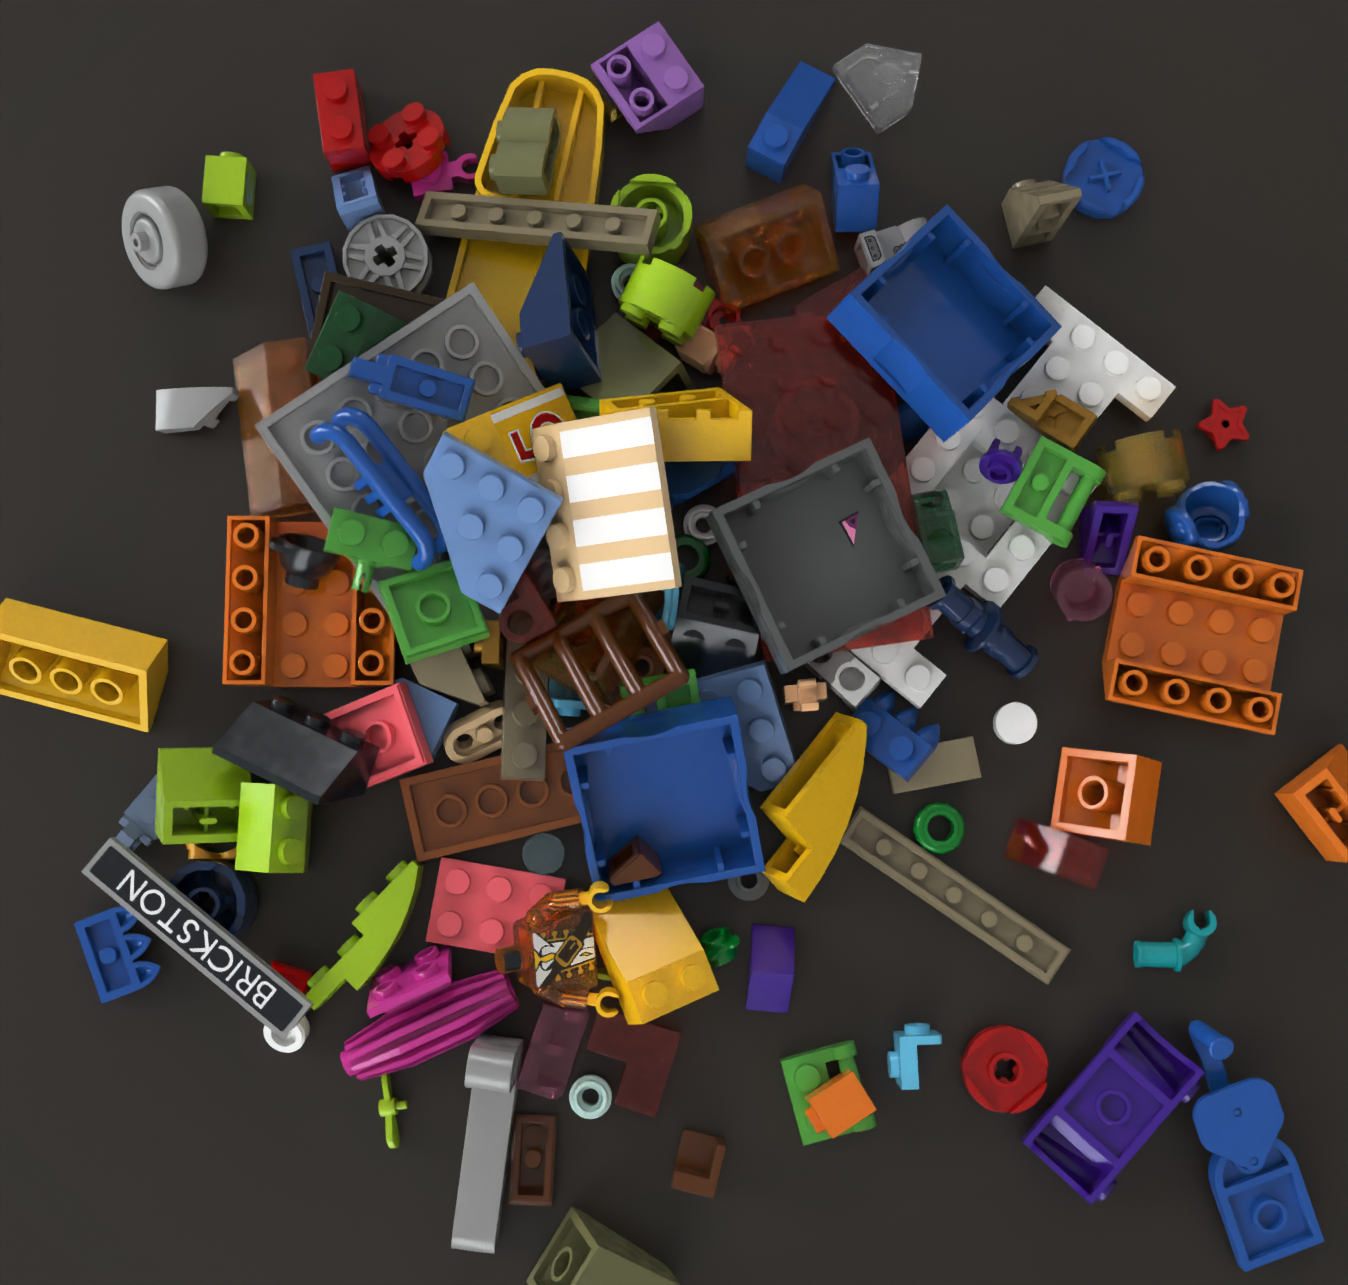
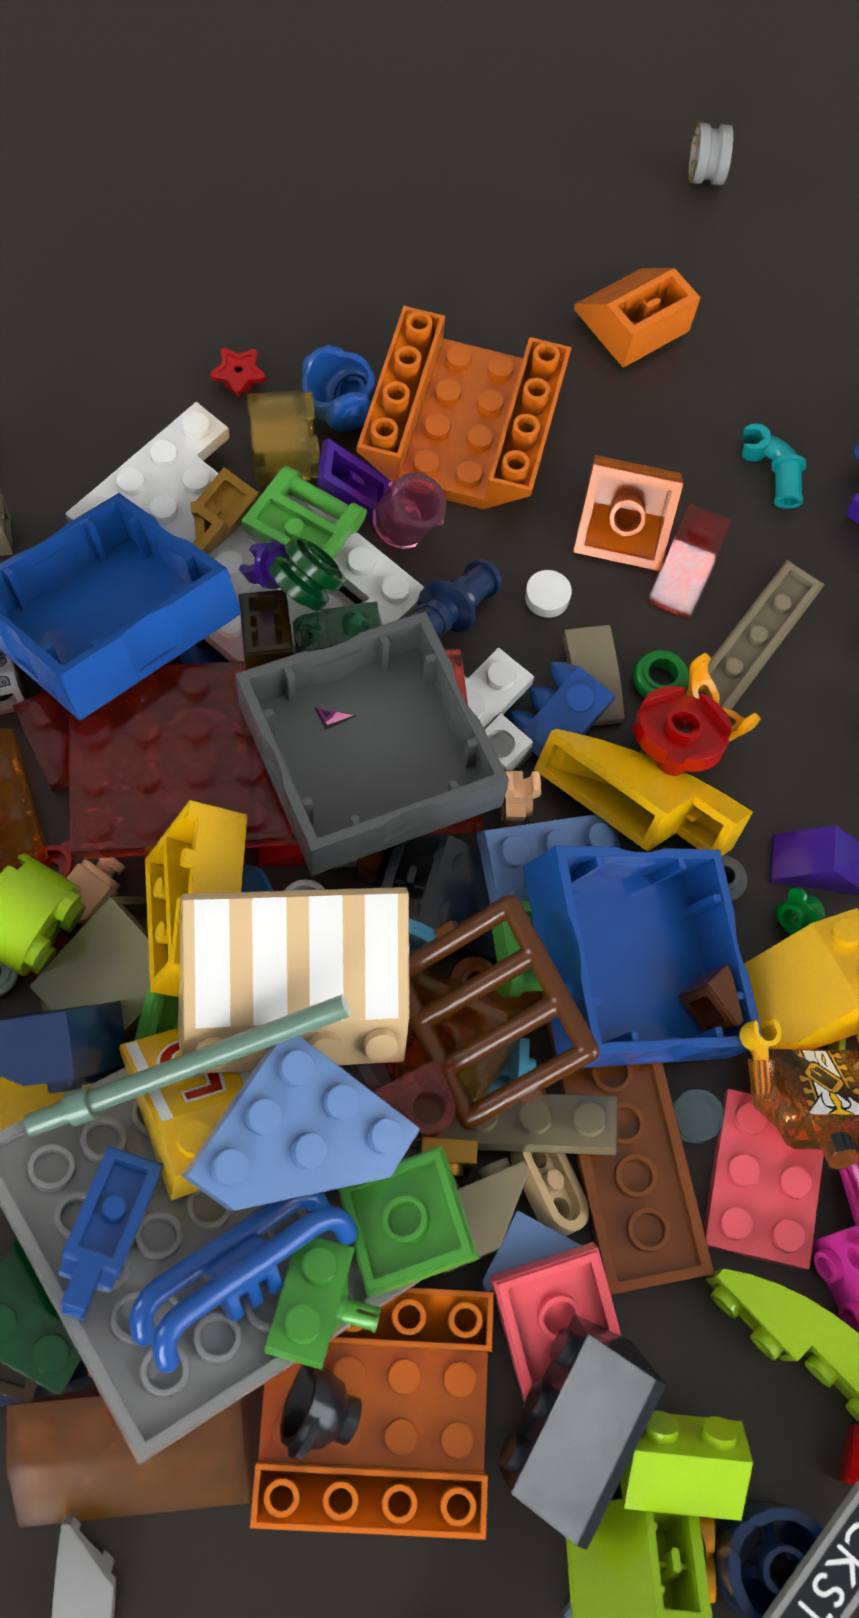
camera: 90 degrees left, 15 degrees down
(505, 360) = (86, 1103): none -> sand green bar
(854, 836) = (673, 748): none -> red plate
(932, 857) = (701, 681): none -> light orange cap
(935, 466) = (265, 627): none -> dark brown plate
(985, 494) = (307, 573): none -> dark green wheel

